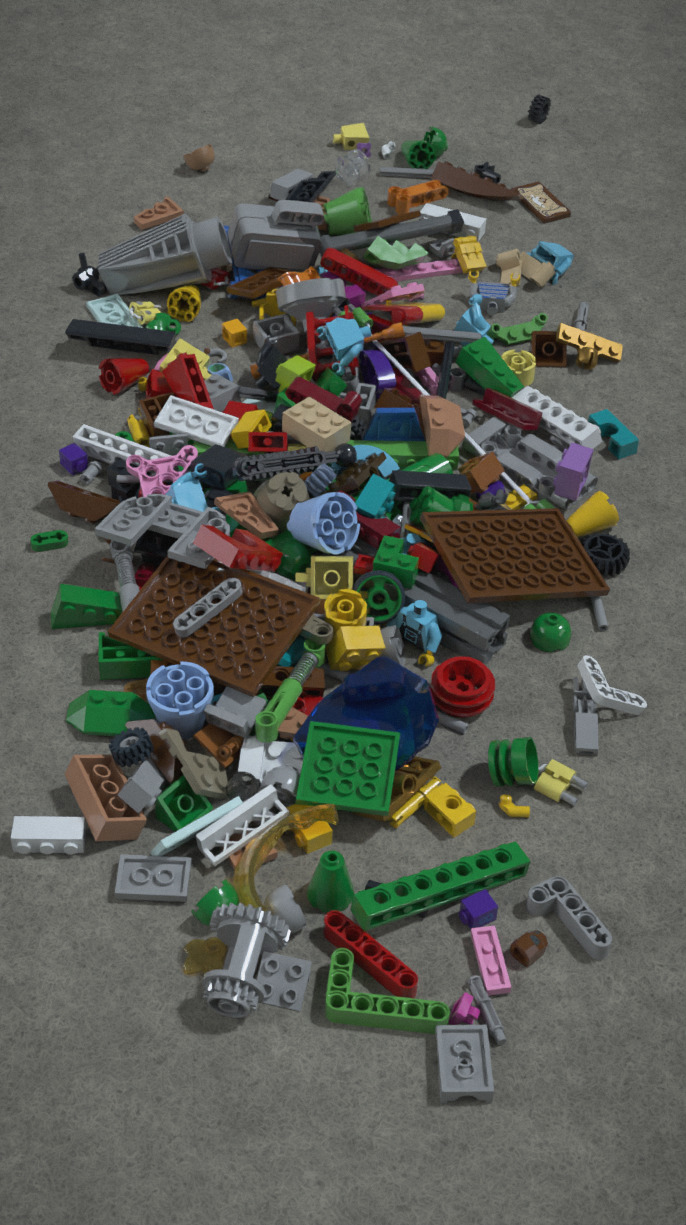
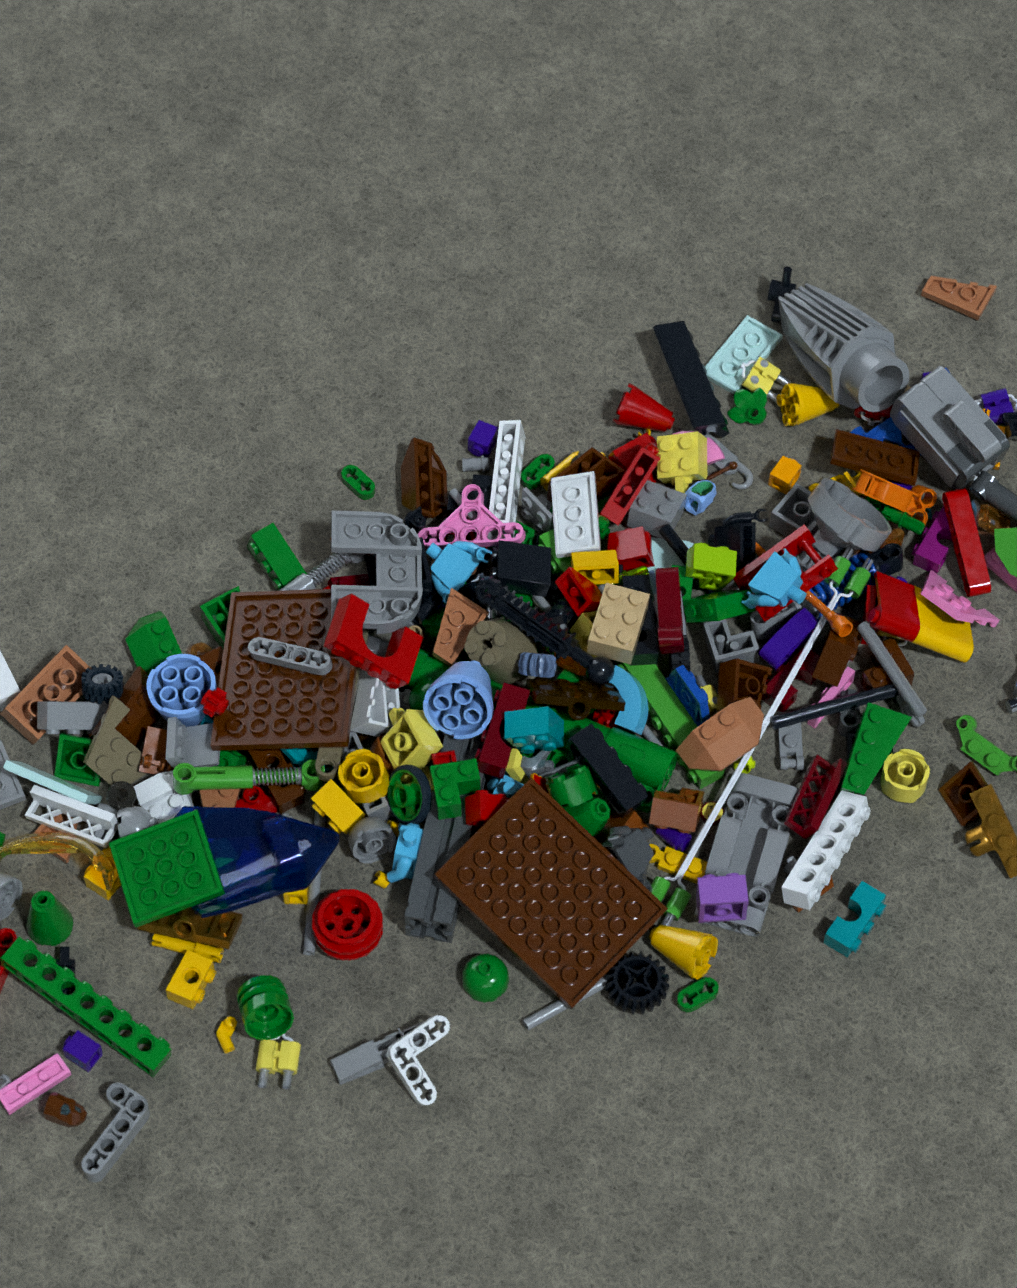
camera: 65 degrees right, 15 degrees up
(218, 667) = (214, 702): none -> red gear
(473, 320) = (939, 698): medium azure torso -> none
(632, 530) = (695, 990): none -> green beam

